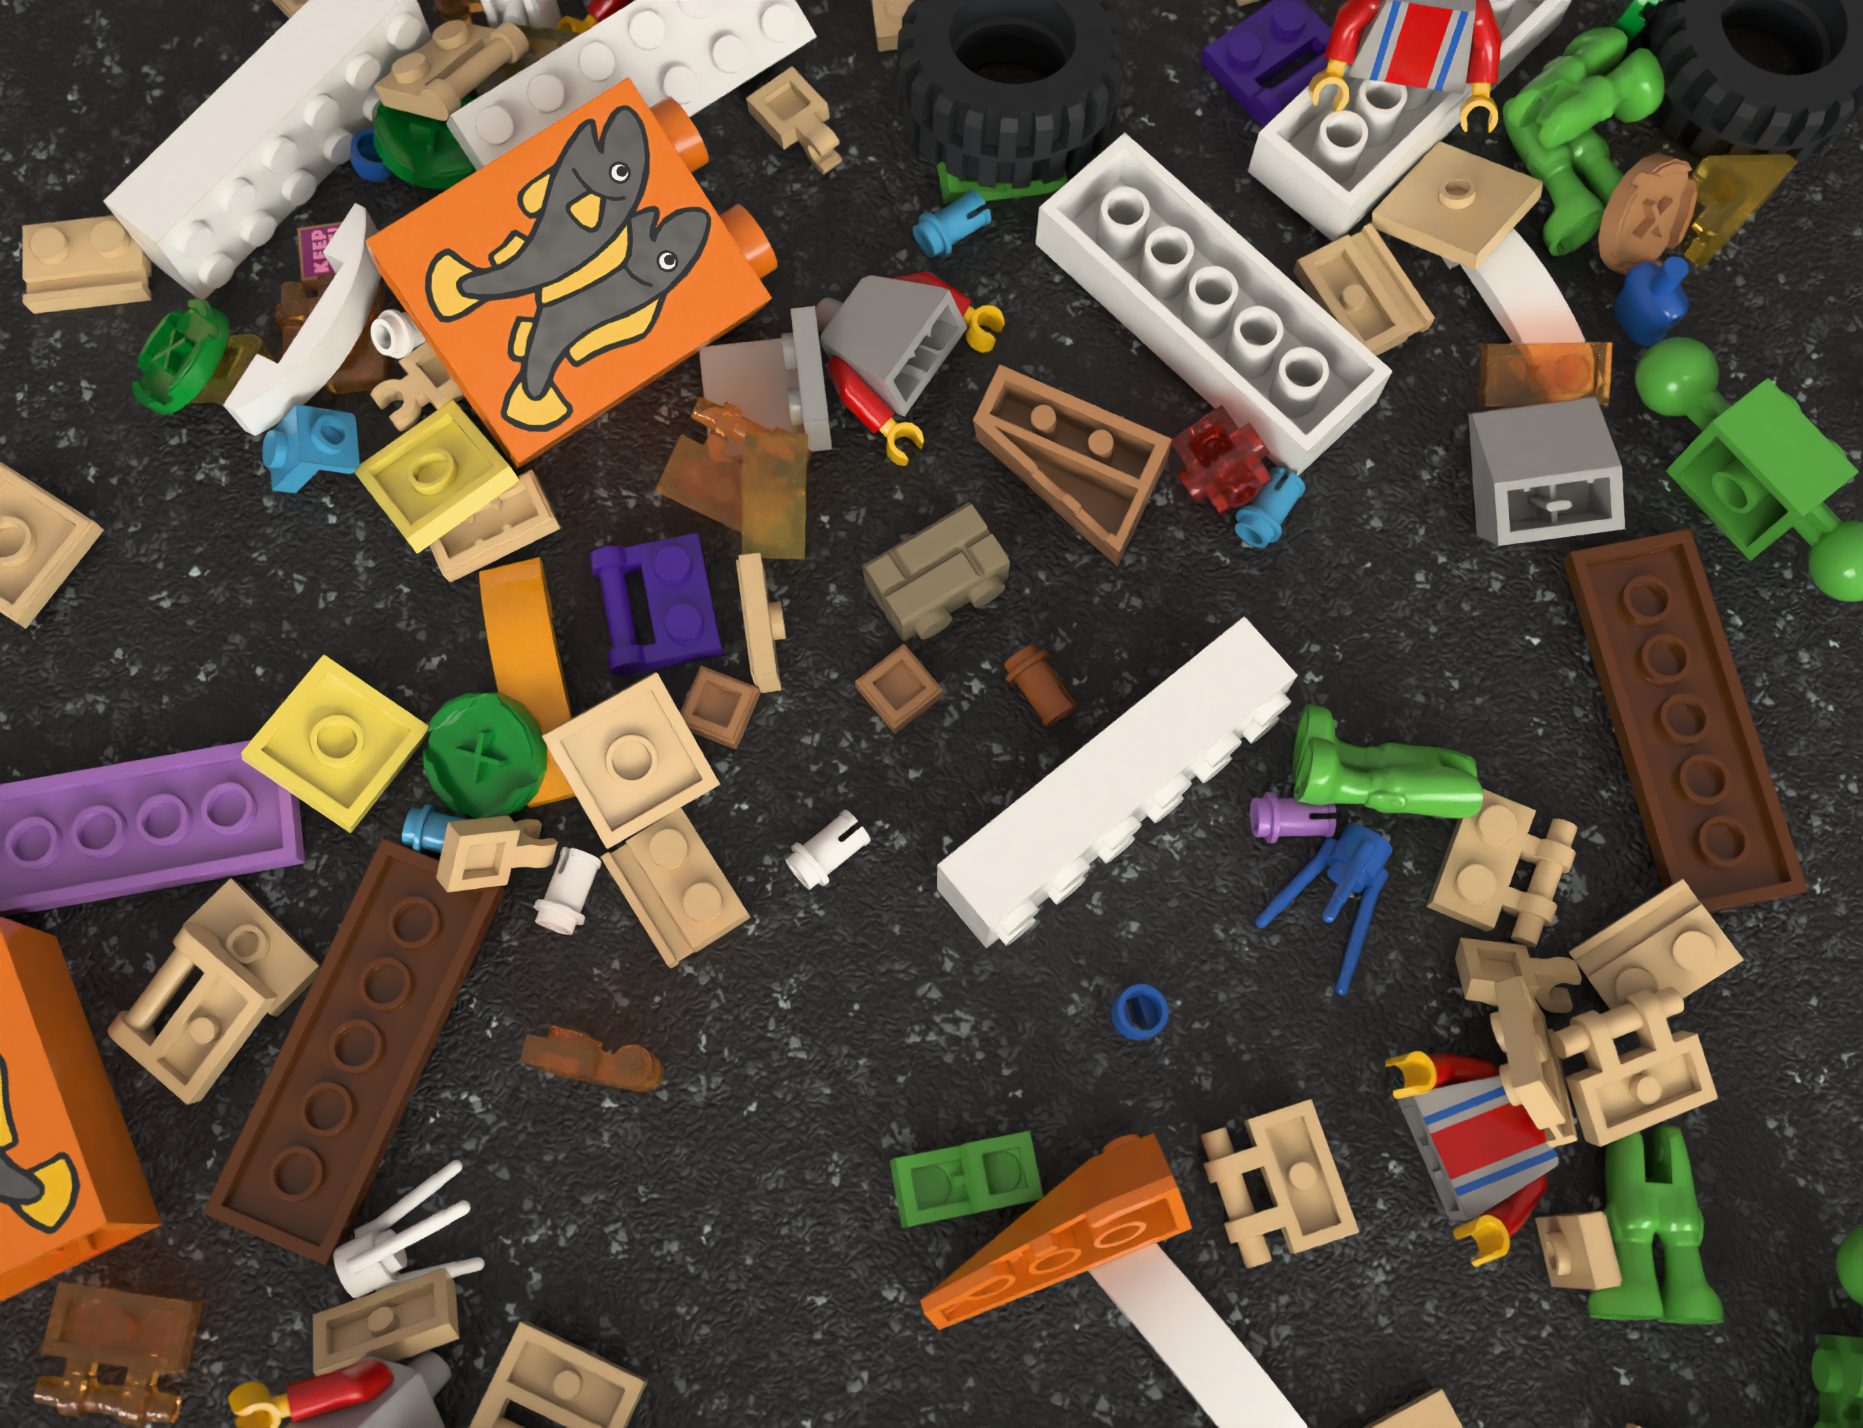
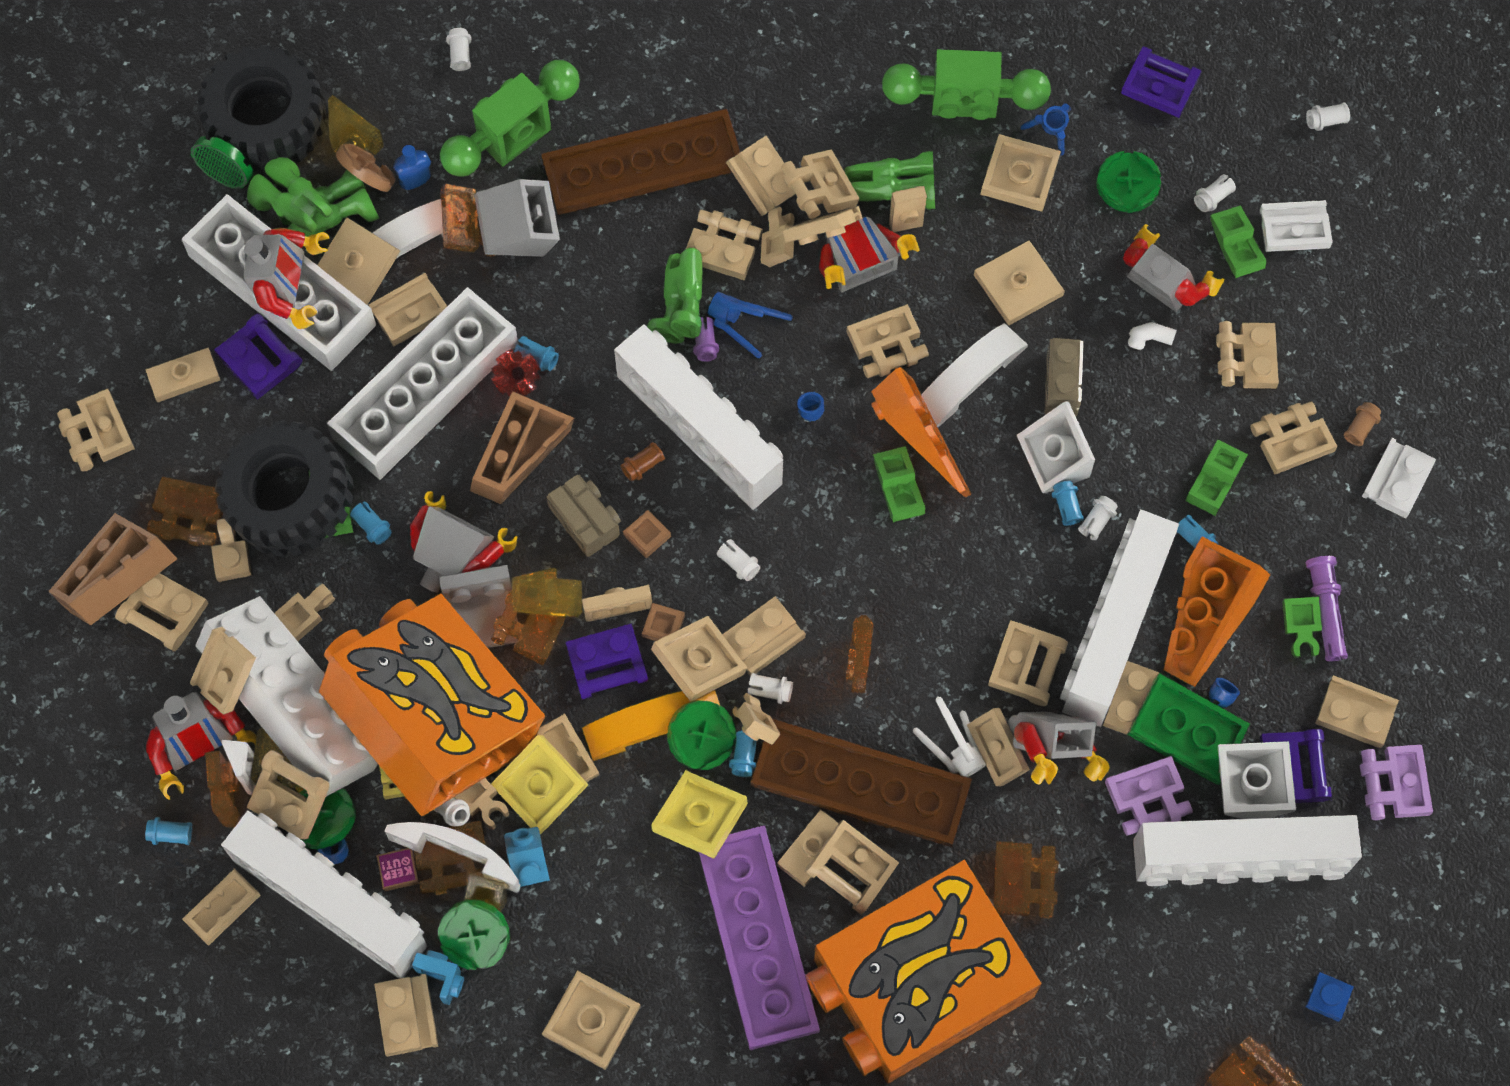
camera: 95 degrees left, 5 degrees down
(136, 308) = (437, 967): none -> dark azure bracket

